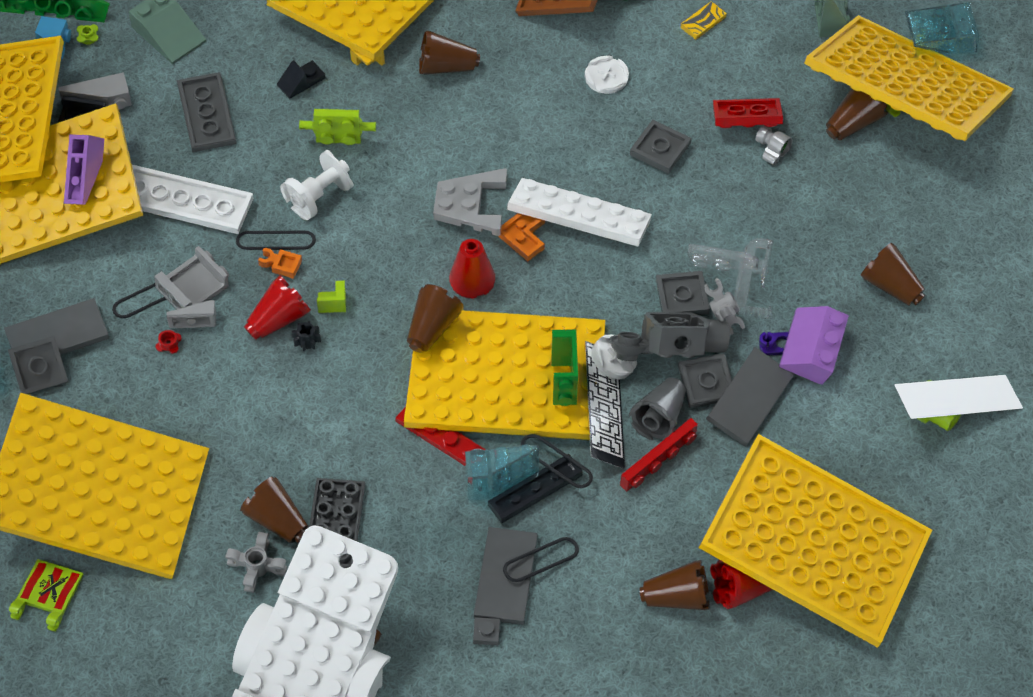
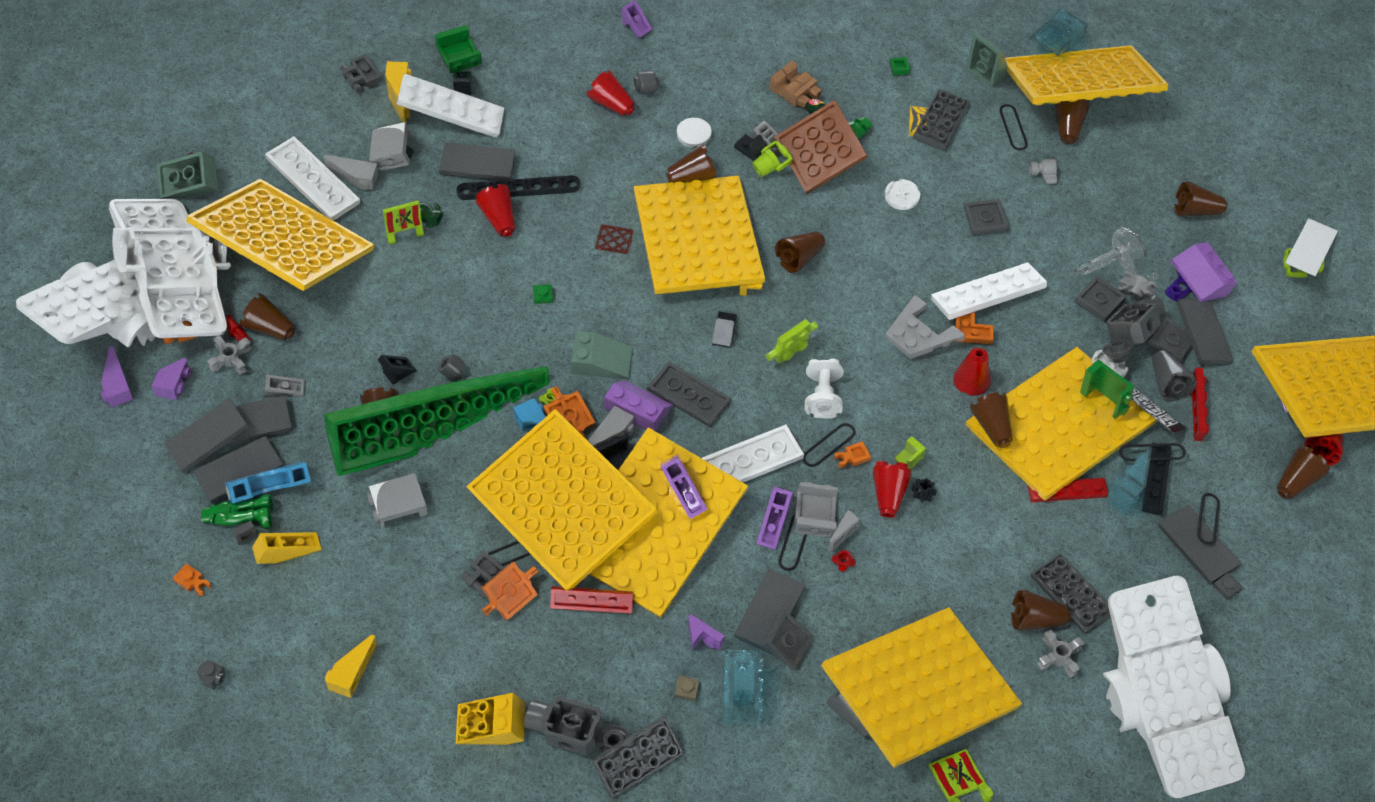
camera: 45 degrees left, 0 degrees up
(84, 55) = (572, 409): none -> orange plate
(151, 87) = (644, 406): none -> medium lavender slope
(160, 255) = (775, 517): none -> medium lavender slope
(728, 33) = (942, 119): none -> dark grey tile
(747, 112) = (1013, 160): red plate -> none
(802, 92) = (1018, 120): none -> black piece

